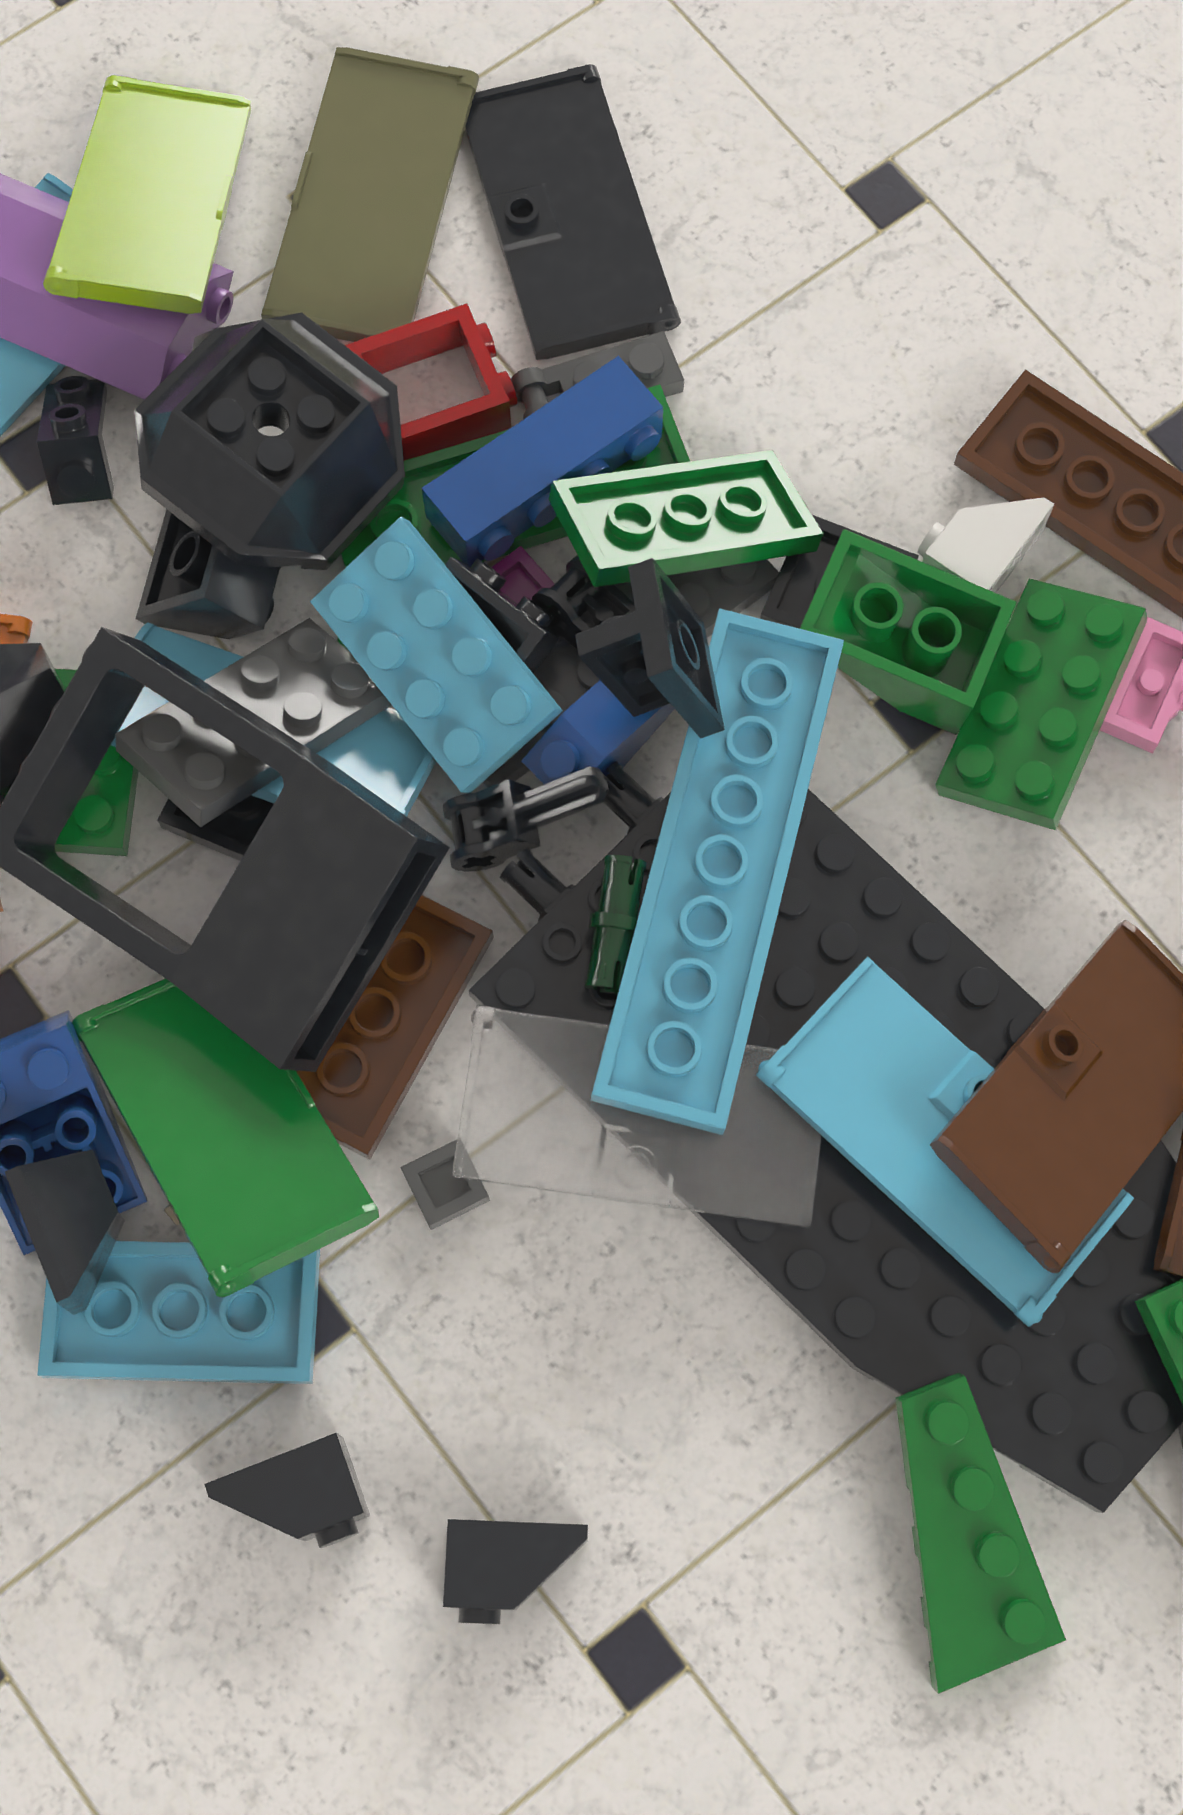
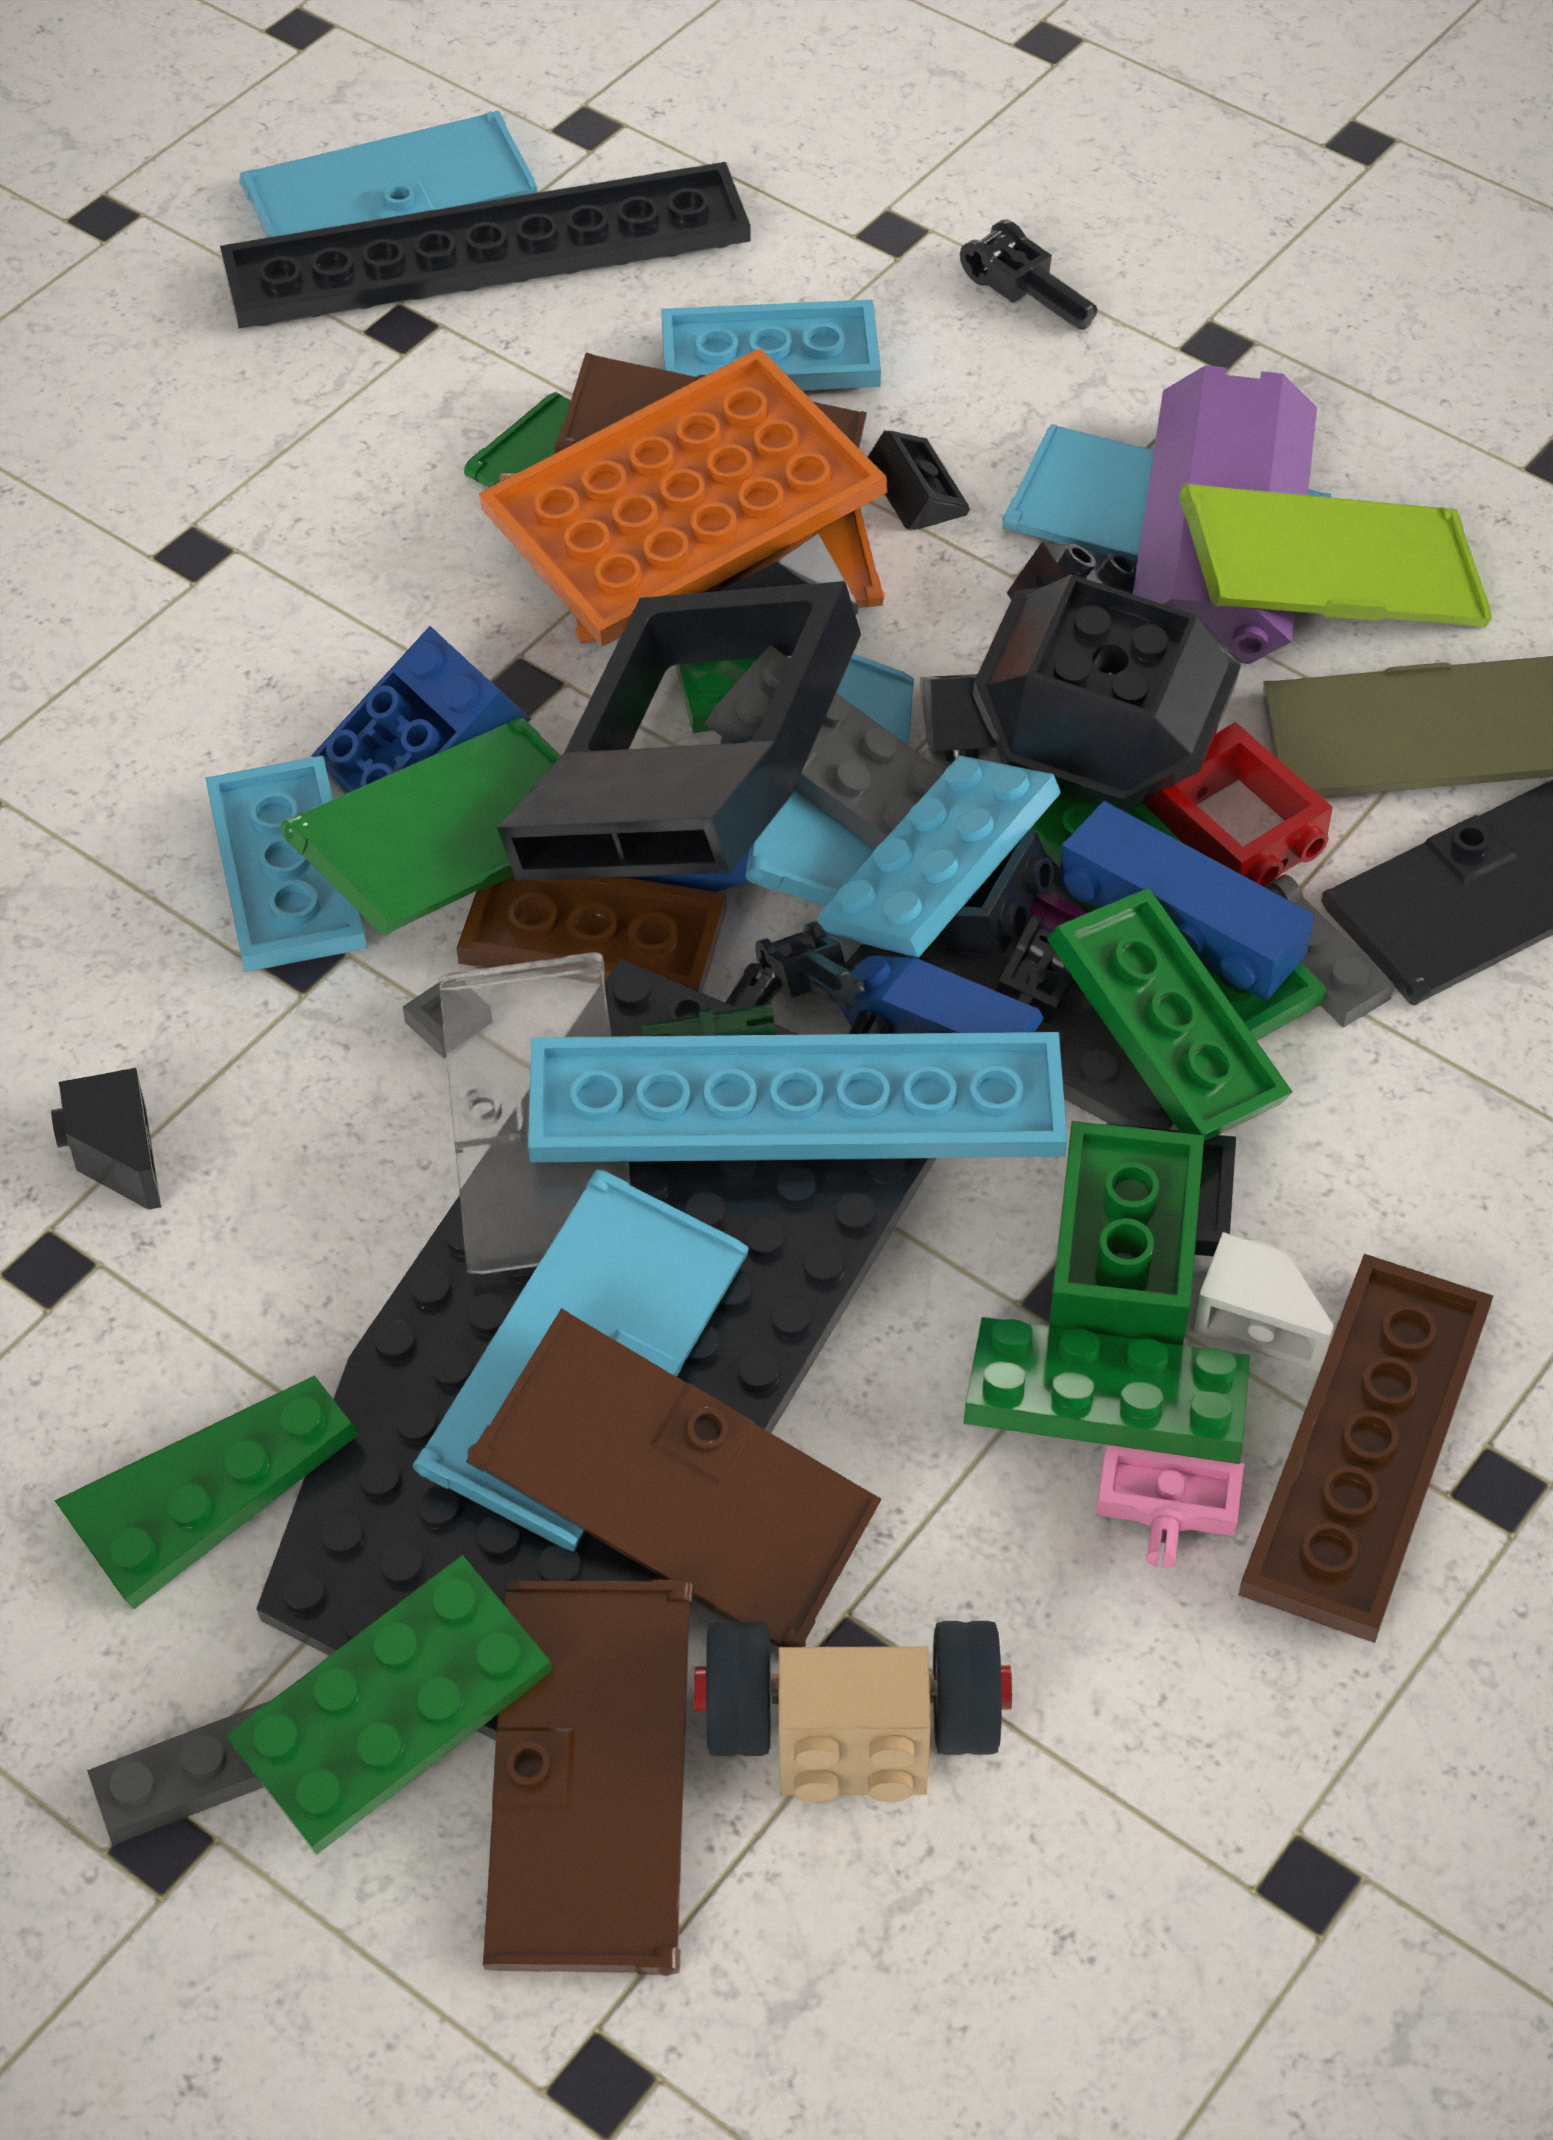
camera: 75 degrees right, 20 degrees down
(68, 1222) = (315, 730): black slope -> none
(299, 1492) = (145, 978): black slope -> none
(656, 653) = (975, 968): black bracket -> none

